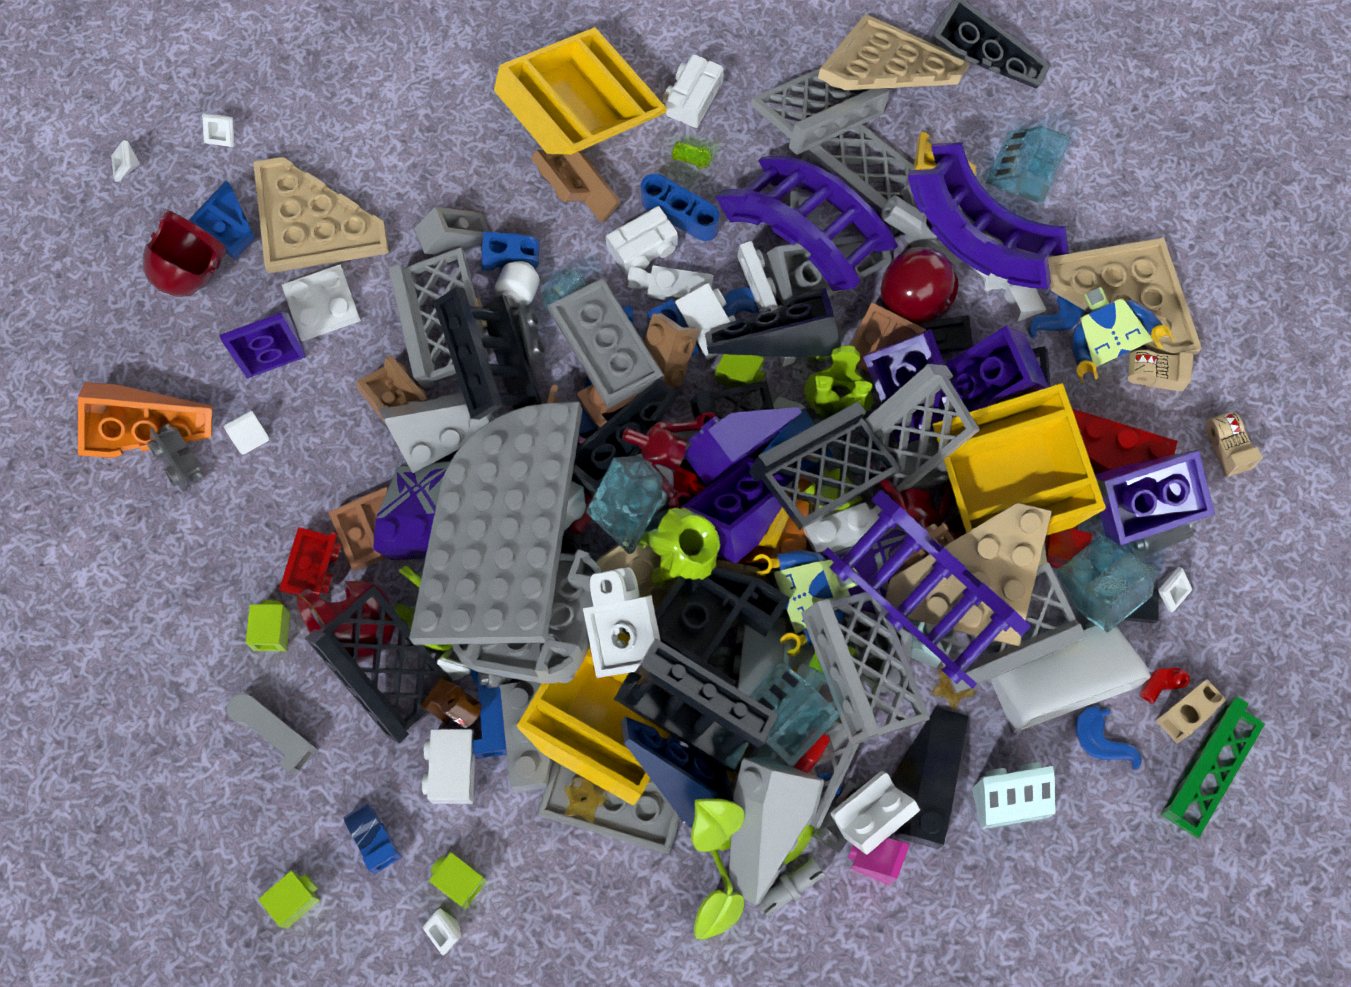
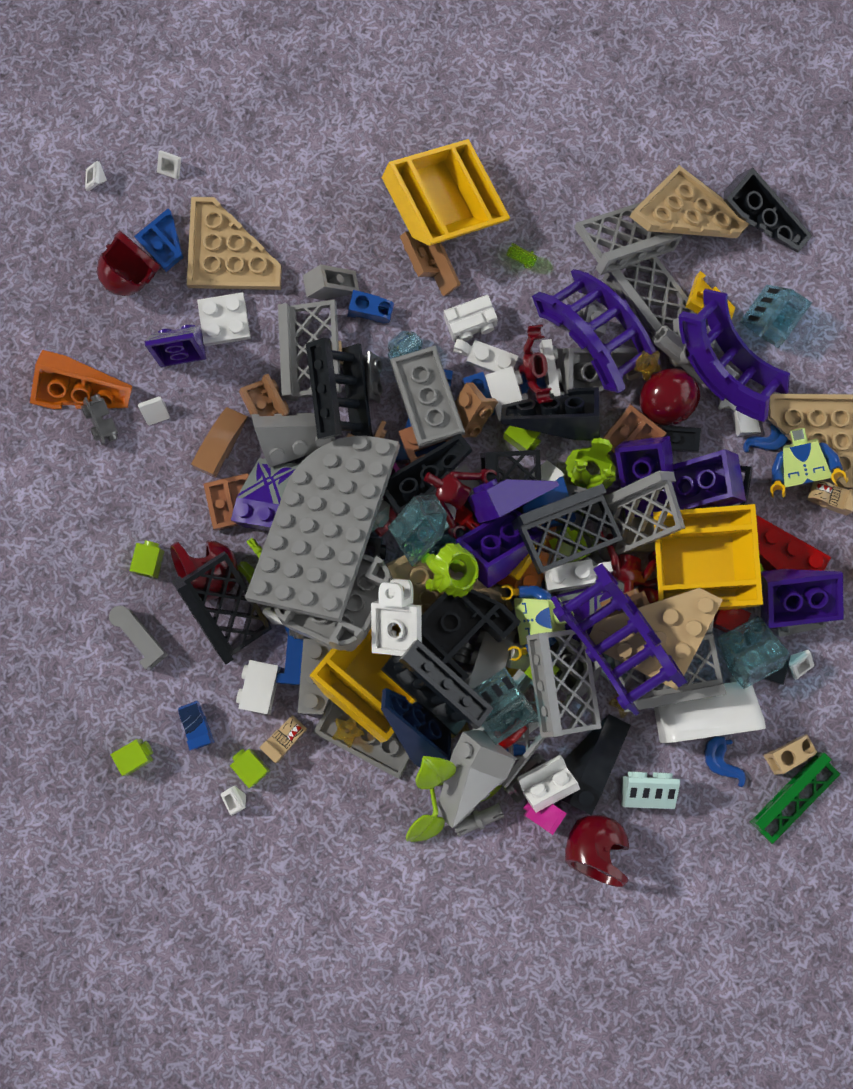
camera: 10 degrees right, 10 degrees up
(309, 562) = (183, 519): red bracket -> none
(340, 457) = (219, 442): none -> medium nougat slope
(451, 702) = (267, 644): reddish brown leg -> none
(498, 830) = (283, 739): none -> tan leg
(518, 282) = (371, 334): white head -> none
(675, 195) = (499, 287): blue beam -> none
(693, 90) = (534, 203): white brick -> none
(737, 275) = (535, 365): none -> dark red piece
(874, 247) = (643, 360): none -> clear yellow plate
(955, 882) = (590, 848): none -> dark red piece
(1164, 679) = (776, 727): red arm -> none

